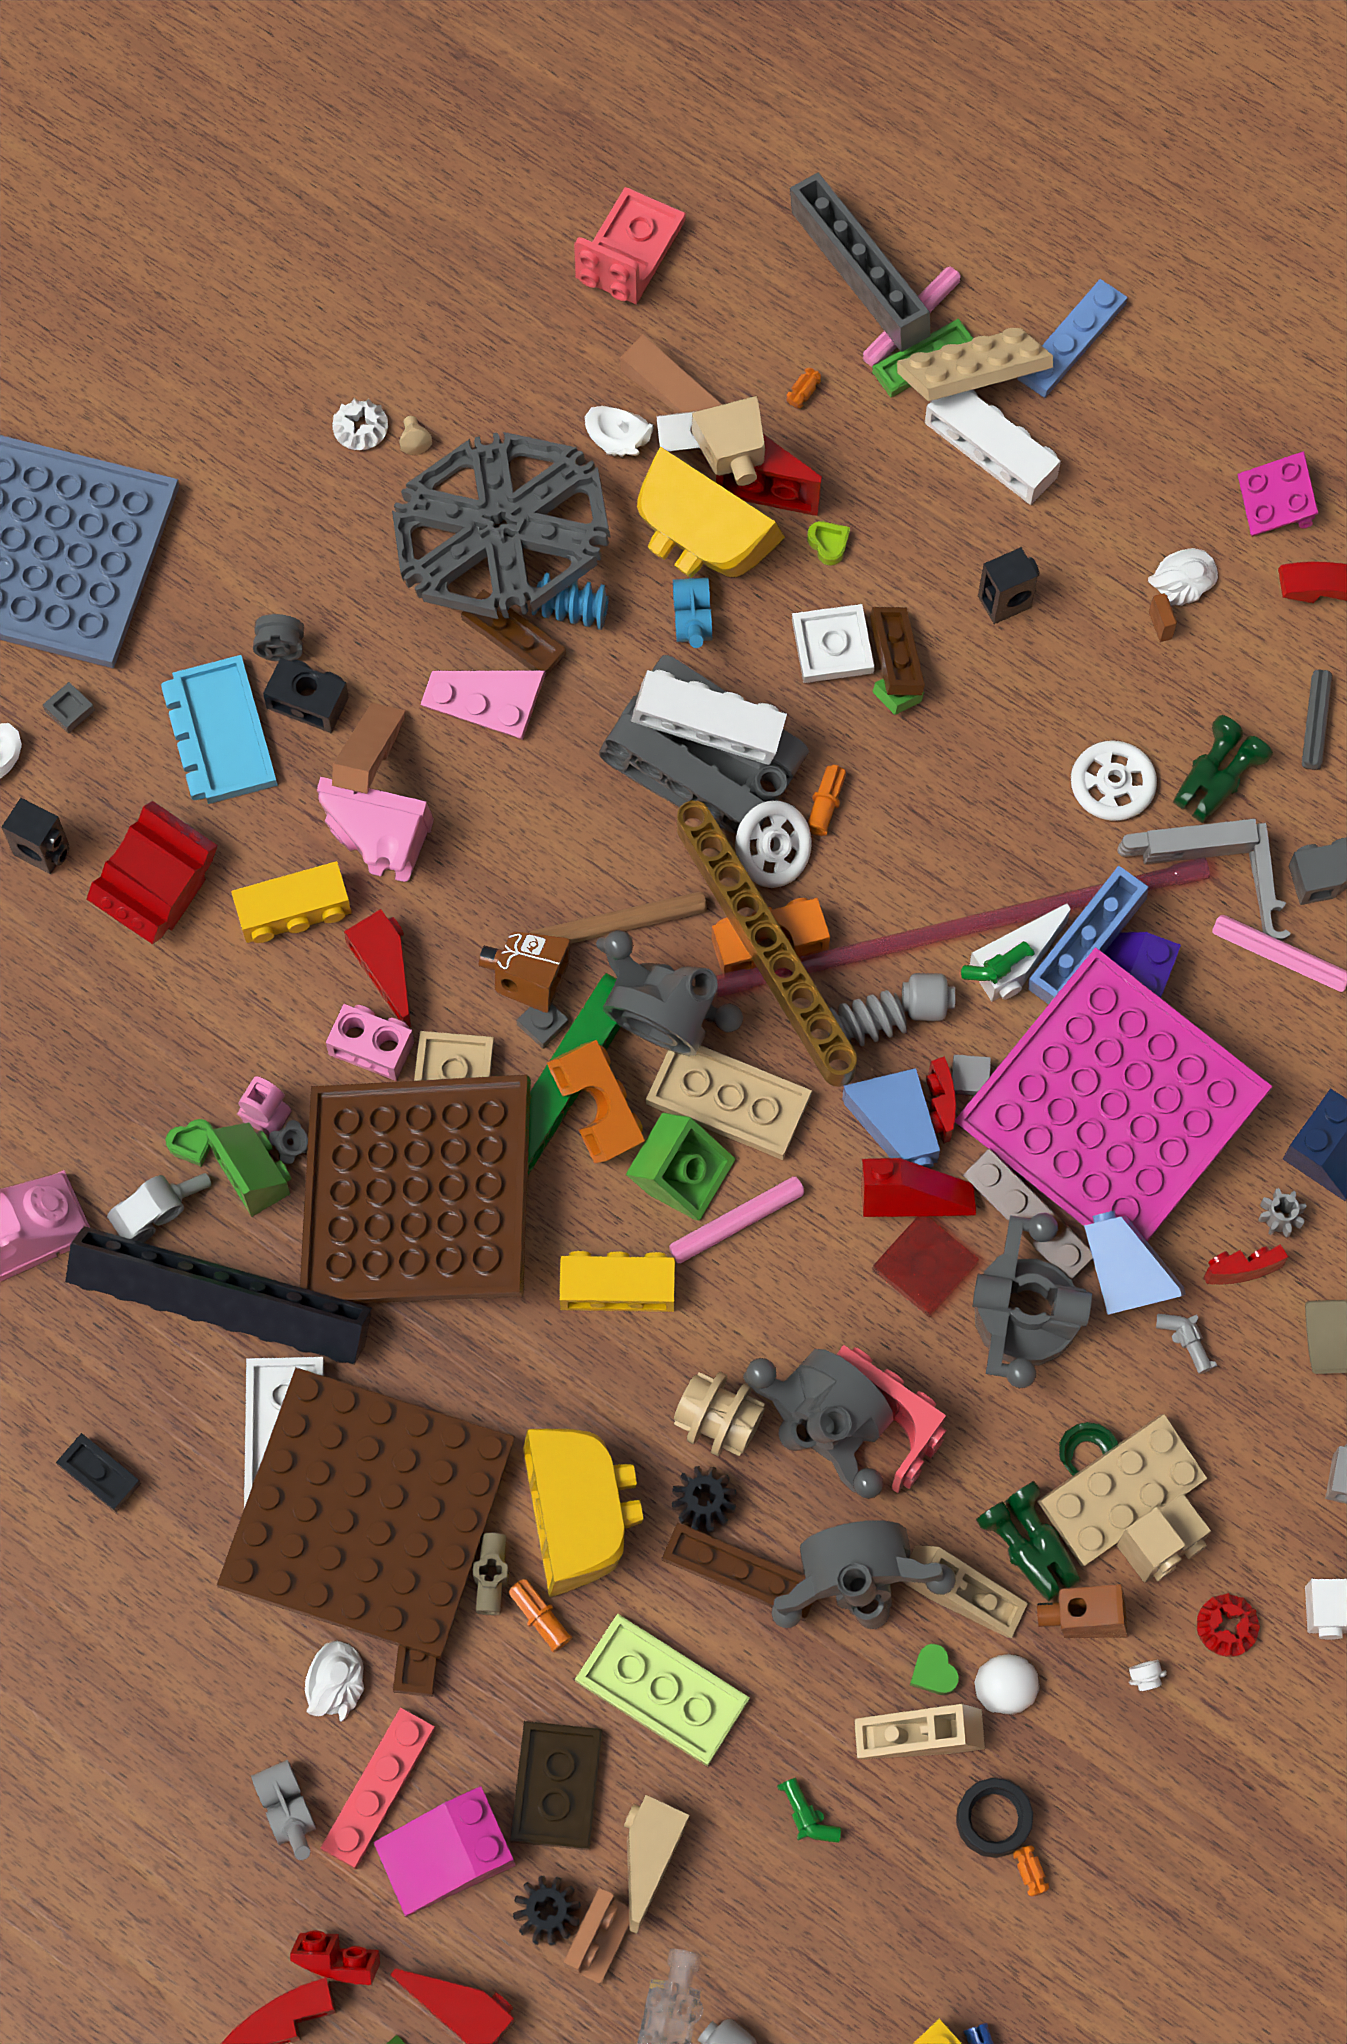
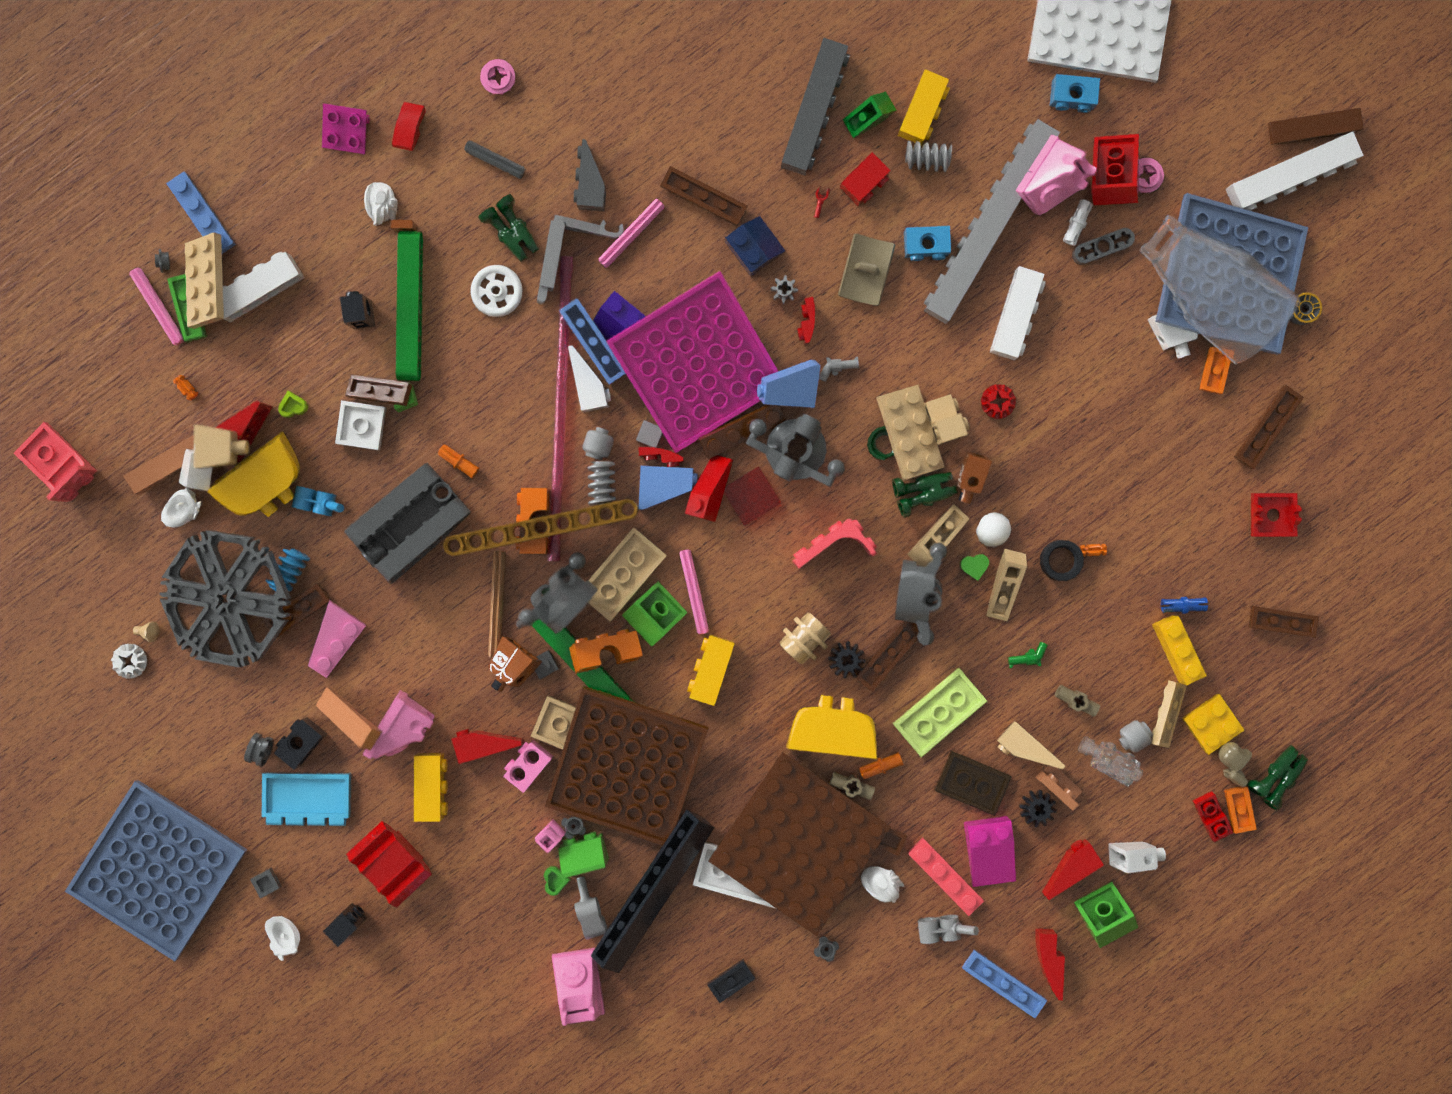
camera: 70 degrees left, 20 degrees up
(190, 1608) = (827, 955): none -> dark grey plate
(216, 1950) = (1004, 983): none -> medium blue plate
(323, 1956) = (1028, 927): red slope -> none
(709, 716) = (394, 518): white brick -> none
(755, 1943) = (1086, 705): none -> dark tan axle
(799, 840) = (469, 513): white plate -> none
(835, 1408) = (825, 578): dark grey piece -> none
(860, 262) = (112, 327): dark grey brick -> none
(983, 304) = (162, 261): none -> dark grey plate
(998, 966) = (595, 398): green piece -> none
(1043, 660) = (409, 305): none -> green beam
(1146, 1675) = (1012, 454): white plate -> none

